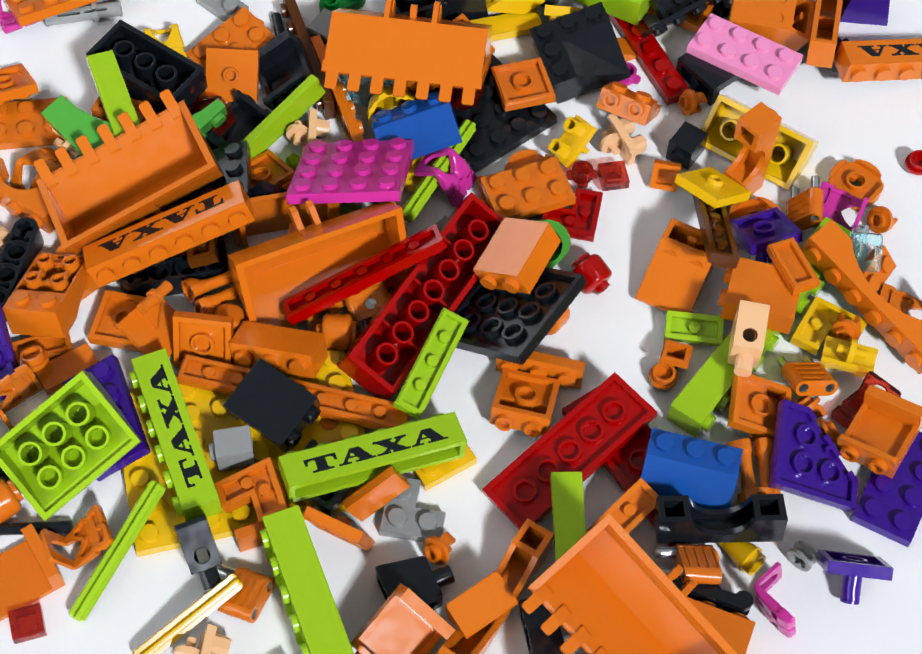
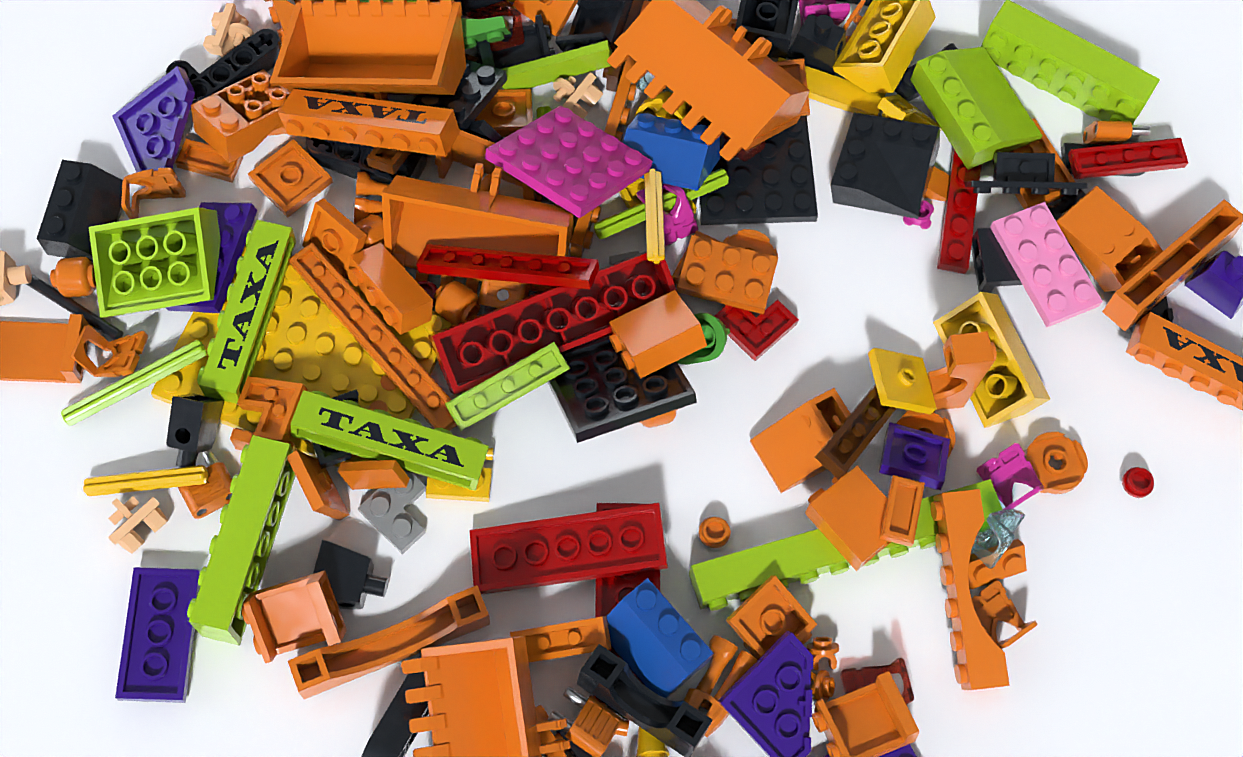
camera: 30 degrees right, 10 degrees up
(27, 623) = (27, 397): clear red tile -> none
(34, 357) = (190, 166): orange plate -> none
(65, 367) = (214, 189): orange tile -> none
(151, 322) = (297, 195): orange plate -> none
(232, 448) = (285, 354): light grey brick -> none
(273, 405) = (341, 339): black panel -> none
(438, 549) = (391, 558): orange plate -> none
(448, 174) = (654, 216): none -> yellow axle
(480, 605) = (380, 634): orange slope -> none
(523, 84) = (805, 165): orange plate -> none
(524, 402) = (567, 475): orange plate -> none
(552, 366) = (625, 469): orange plate -> none
(567, 510) = (518, 602): lime tile -> none
(573, 141) = (809, 251): yellow hips -> none
(582, 173) = (799, 280): clear red plate -> none
(595, 272) = (724, 392): red head -> none
(613, 175) = (823, 308): clear red plate -> none
(618, 141) = (864, 265): light nougat hips -> none
(628, 104) = (891, 246): orange plate -> none
(664, 175) = (872, 336): orange tile -> none
(676, 354) = (738, 520): orange slope -> none
(686, 145) = (917, 322): black brick -> none
(690, 101) = (958, 281): orange plate -> none
(694, 328) = (777, 505): lime plate -> none
(747, 337) = (810, 544): light nougat torso -> none
(806, 208) = (980, 455): orange piece -> none
(807, 377) = (843, 624): orange piece -> none
(818, 325) = (906, 577): yellow plate -> none
(846, 329) = (915, 605): orange plate -> none
(848, 356) = (899, 629): yellow hips -> none
(880, 219) = (1048, 515): orange plate -> none

